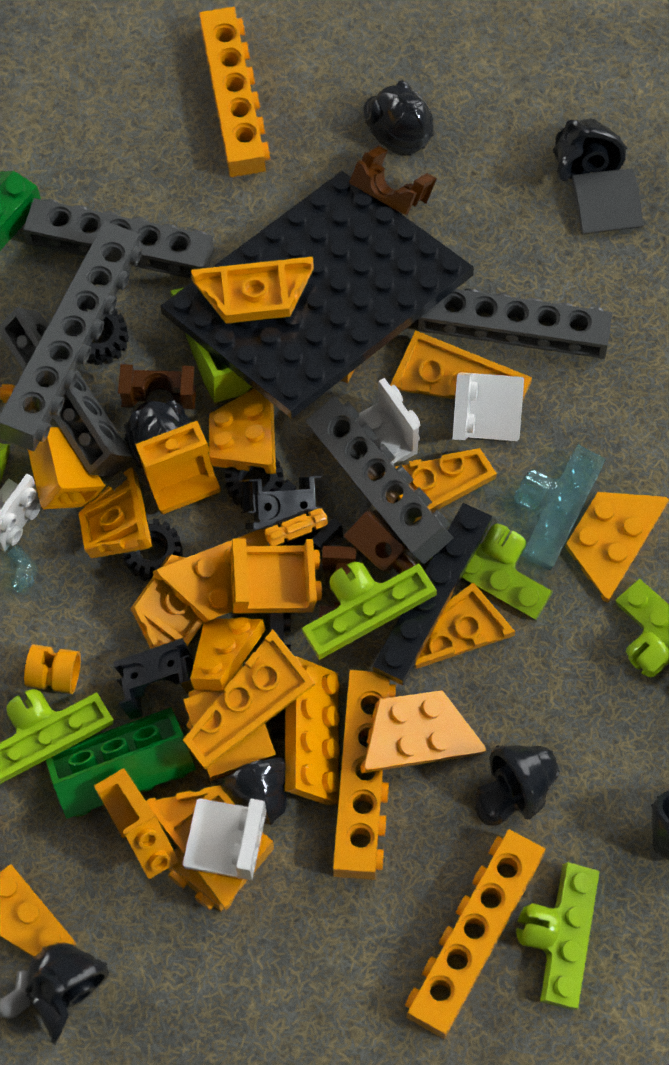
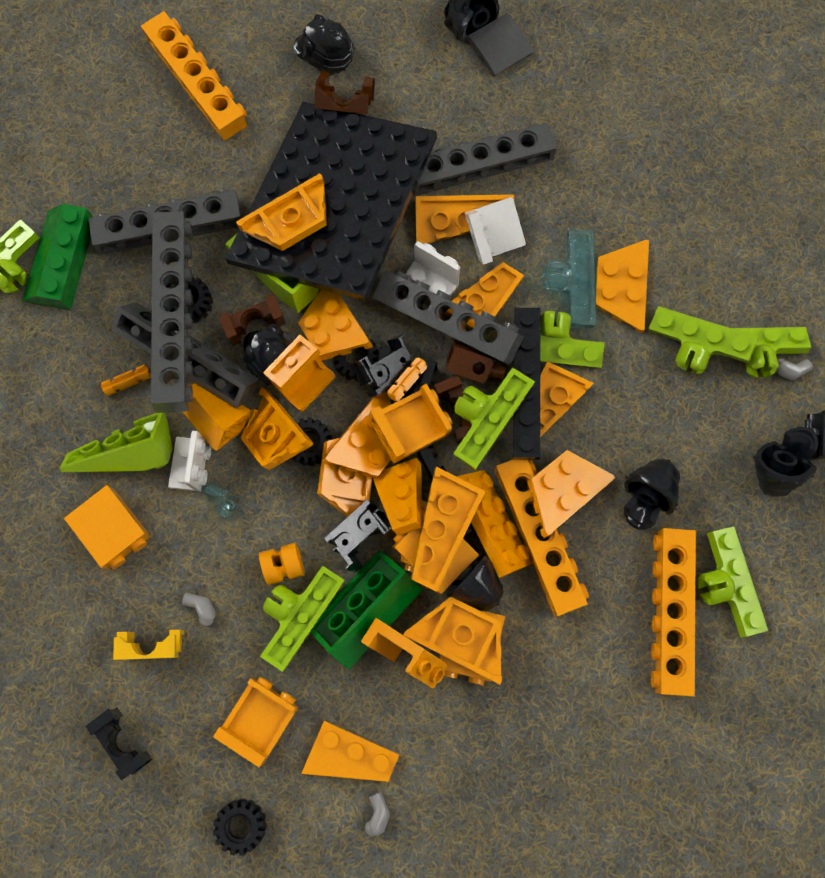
camera: 25 degrees left, 10 degrees up
(61, 979) = (404, 791): black head -> none
(225, 838) = (477, 636): white bracket -> none

